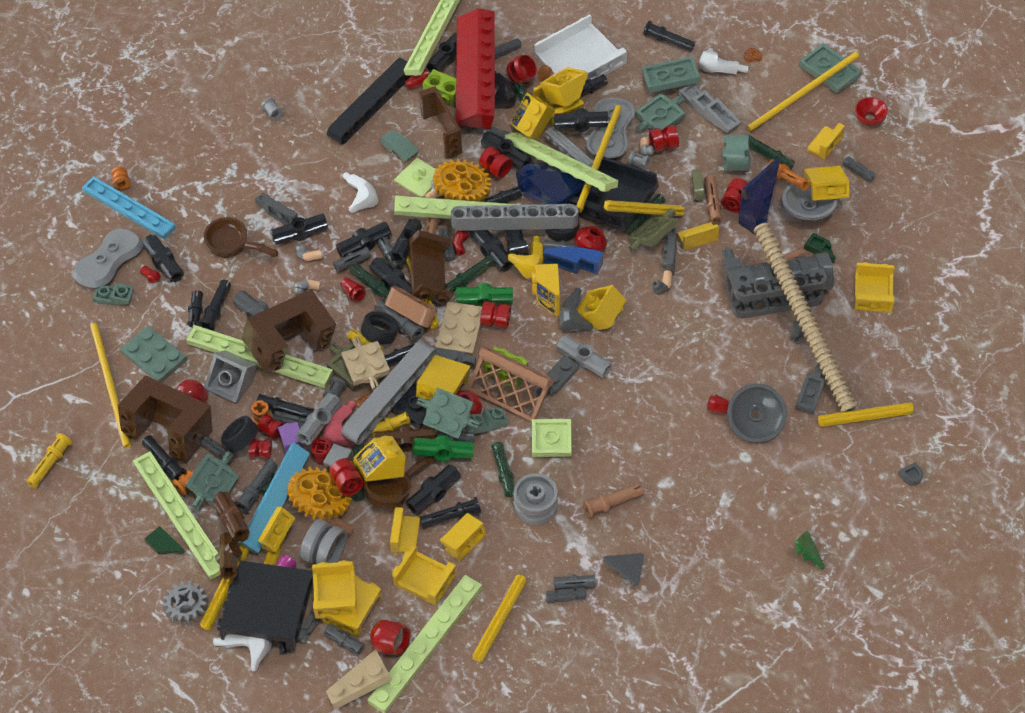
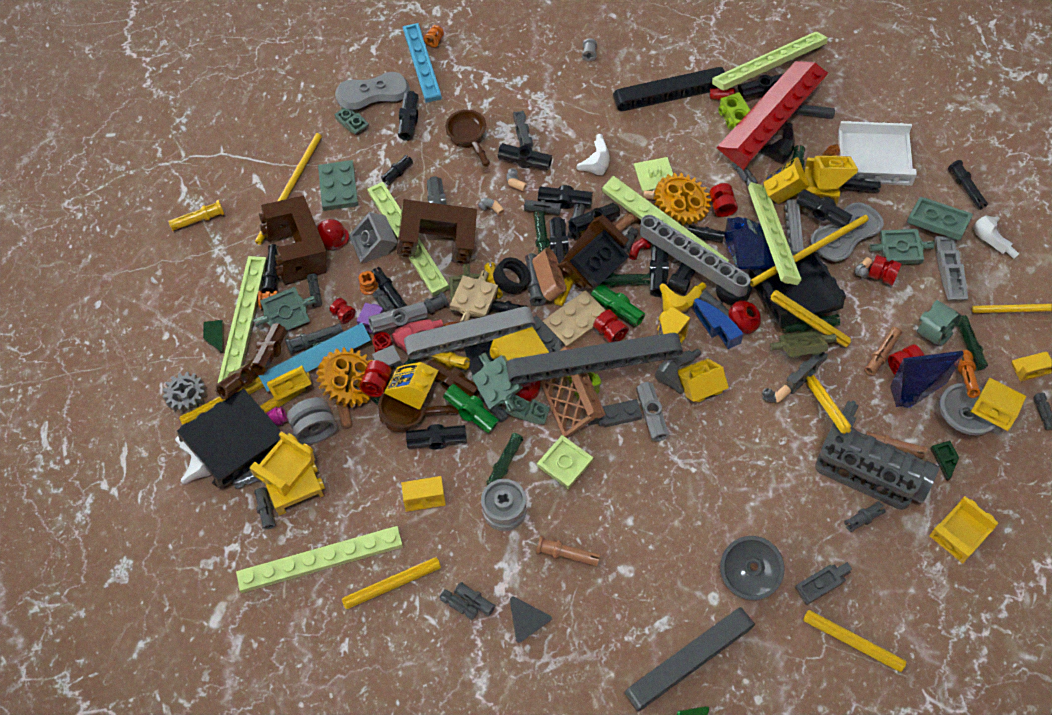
camera: 40 degrees right, 5 degrees up
(152, 275) = (390, 123): red arm -> none
(213, 312) = (405, 180): black pin -> none
(239, 434) = (334, 288): black tyre -> none
(269, 426) = (363, 295): red wheel -> none
(353, 289) = (522, 232): red cone -> none
(358, 681) = (244, 552): tan wing -> none
(384, 636) = (290, 528): red helmet -> none
(402, 146) = (660, 137): sand green slope -> none
(404, 531) = (384, 455): yellow panel -> none
(423, 576) = (366, 502): yellow panel -> none
(432, 105) = (711, 121): reddish brown panel -> none
(442, 267) = (599, 258): none -> black plate
(458, 511) = (439, 469): black pin -> none
(506, 147) = (741, 194): black piece -> none
(514, 340) = (594, 358): none -> dark grey beam
(521, 69) = (812, 136): red helmet -> none
(638, 160) = (847, 275): light grey bush -> none
(697, 184) = (880, 328): olive beam -> none
(698, 235) = (842, 374): yellow panel -> none
(711, 260) = (828, 404): none -> yellow axle
(717, 404) = (727, 533): red cone -> none
(752, 55) = (1032, 246): clear orange piece -> none
(767, 508) = (689, 659): none -> dark grey beam
(805, 317) = (865, 513): tan piece -> none

